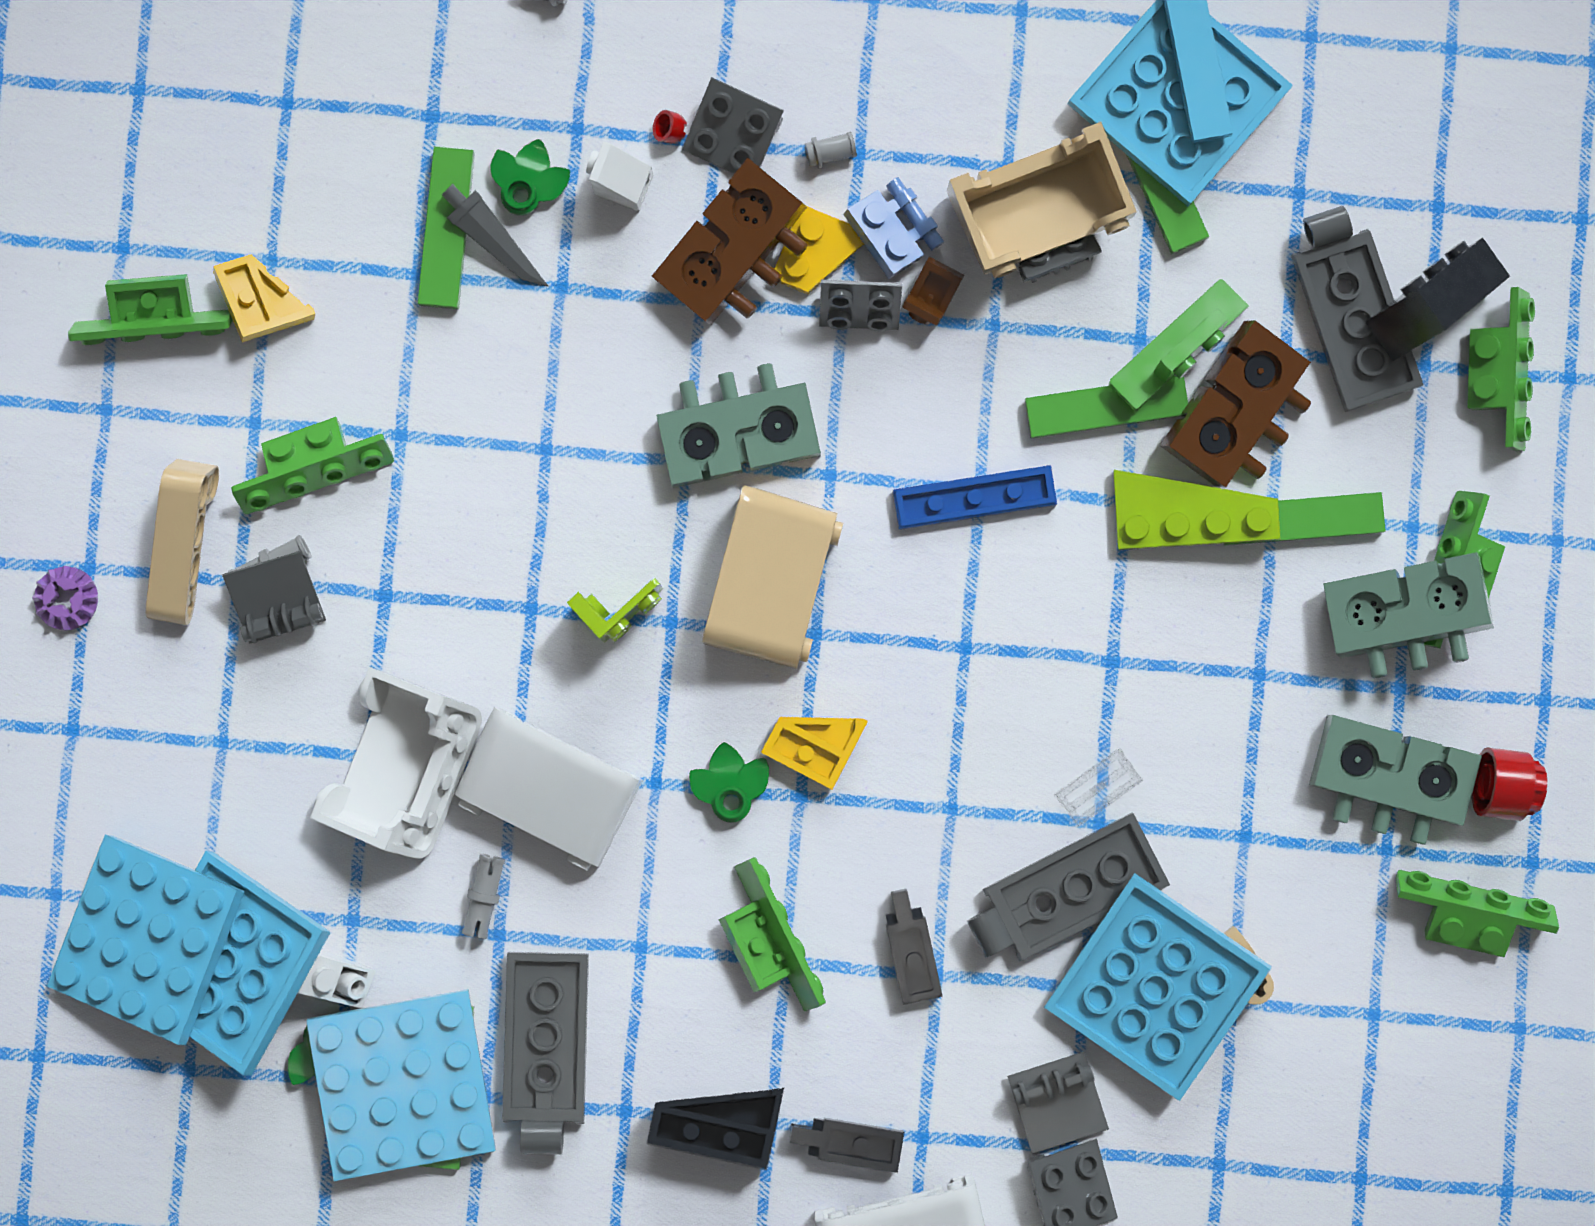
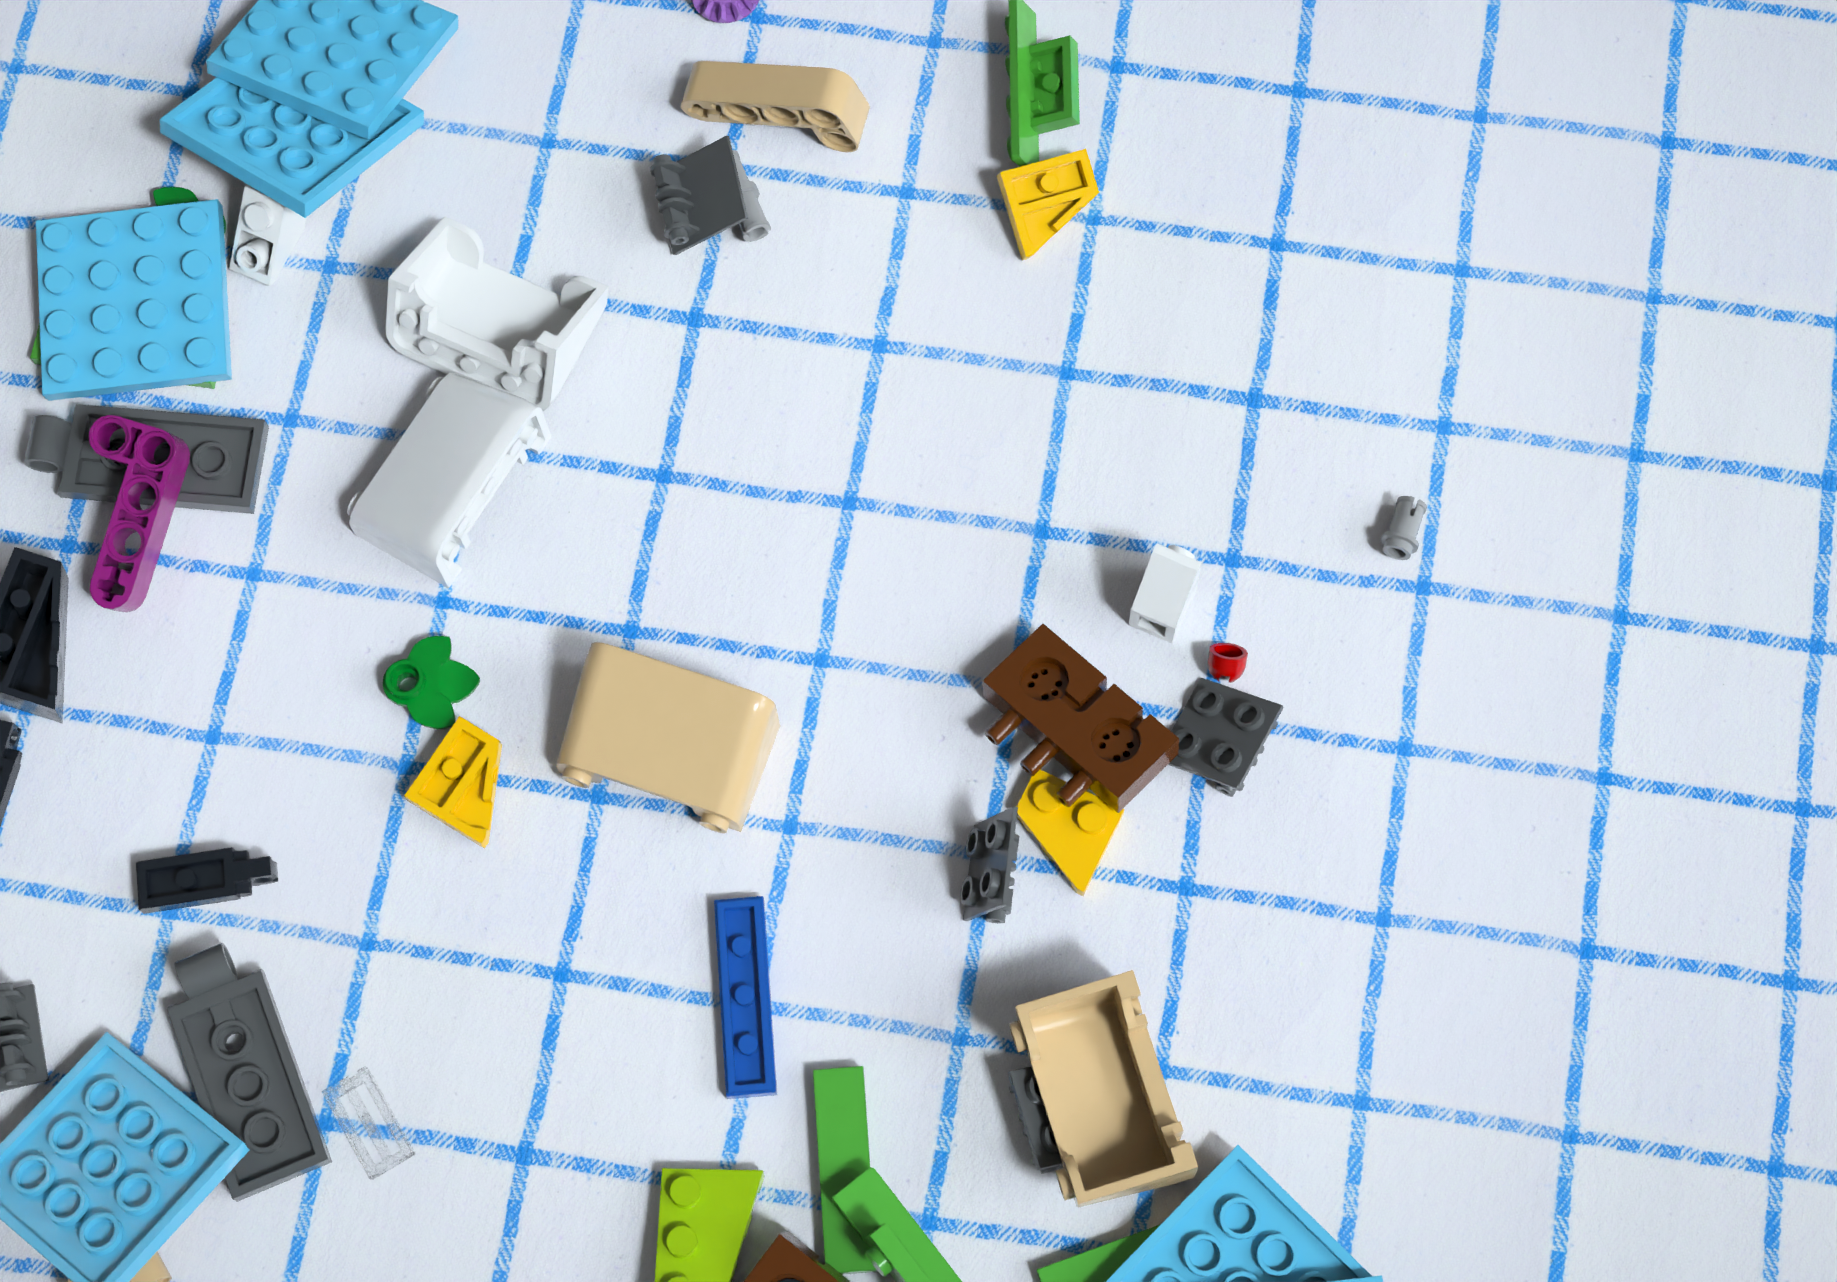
camera: 95 degrees right, 15 degrees down
(309, 462) = (854, 242): bright green bracket -> none
(442, 240) = (1119, 405): bright green tile -> none
(483, 896) = (334, 400): light grey pin -> none
(484, 228) = (1118, 439): dark grey bar -> none
(528, 172) = (1181, 500): green plate -> none
(594, 613) = (639, 534): lime bracket -> none
(607, 1051) = (128, 515): none -> magenta beam
(751, 429) = (849, 717): sand green piece -> none
(765, 940) = (233, 705): bright green bracket -> none
(830, 149) = (1190, 848): light grey pin -> none
(884, 233) = (1080, 905): plate -> none
(932, 292) = (1002, 958): reddish brown bracket -> none

